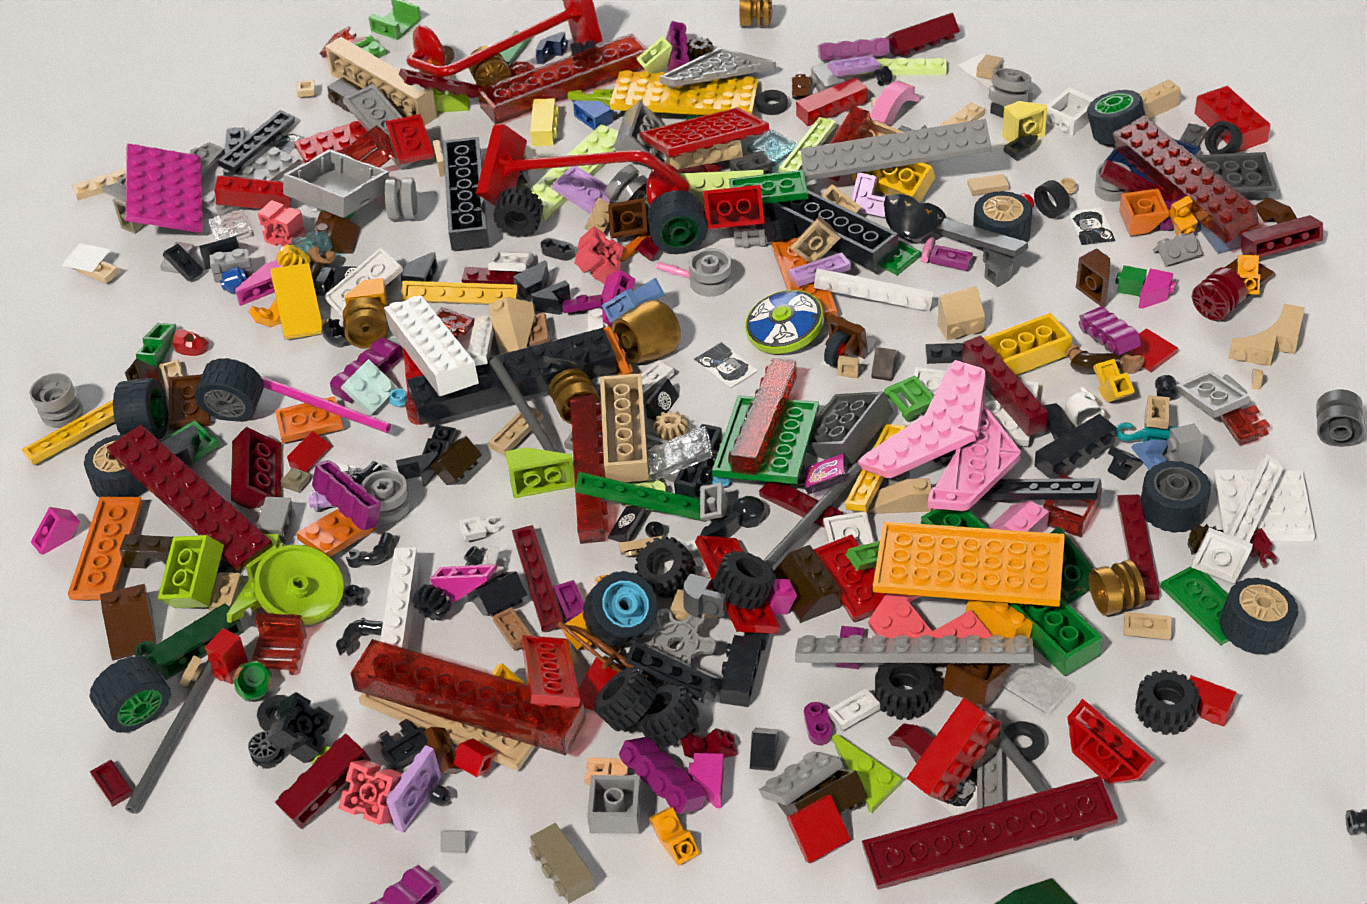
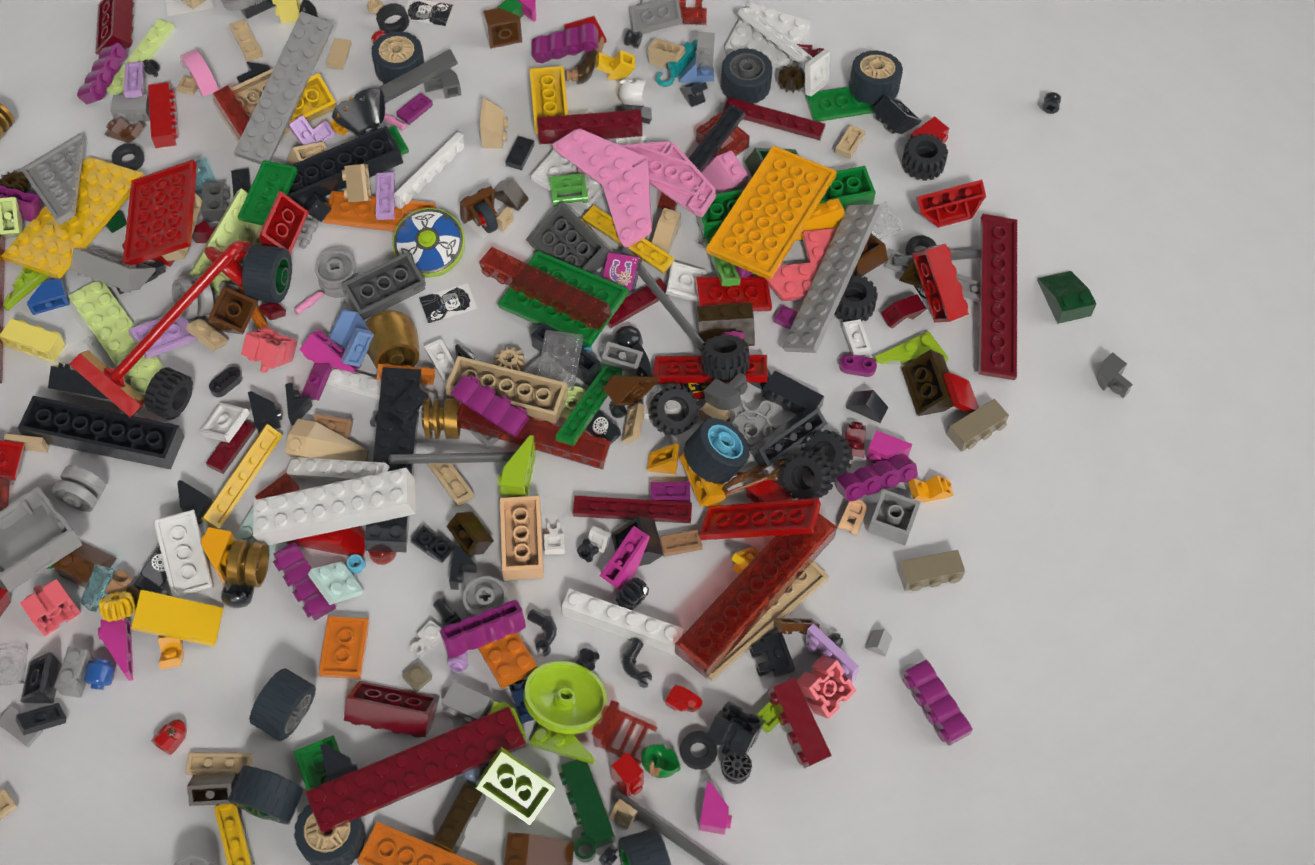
camera: 75 degrees left, 15 degrees up
(156, 344) = (154, 770): green slope -> none
(182, 402) = (259, 750): reddish brown tile -> none
(212, 742) = (714, 812): none -> dark pink slope
(225, 590) = (540, 764): tan plate -> none
(308, 452) = (389, 657): red slope -> none
(326, 405) = (339, 626): dark pink piece -> none
(328, 681) = (683, 699): none -> red rock
(465, 496) = (521, 538): none -> light nougat brick
(474, 757) = (812, 604): red brick -> none
(588, 411) = (489, 405): none -> magenta brick
(672, 519) = (629, 389): none -> reddish brown slope
(710, 305) = (384, 286): none -> dark grey brick
(785, 861) = (978, 425): none -> dark tan brick
(800, 777) = (912, 389): light grey plate -> none
(814, 137) = (217, 152): yellowish green plate -> none
(1075, 447) = (668, 111): black brick -> none
(1116, 587) = (818, 141): pearl gold wheel -> none
(1220, 658) = (895, 115): none -> black slope

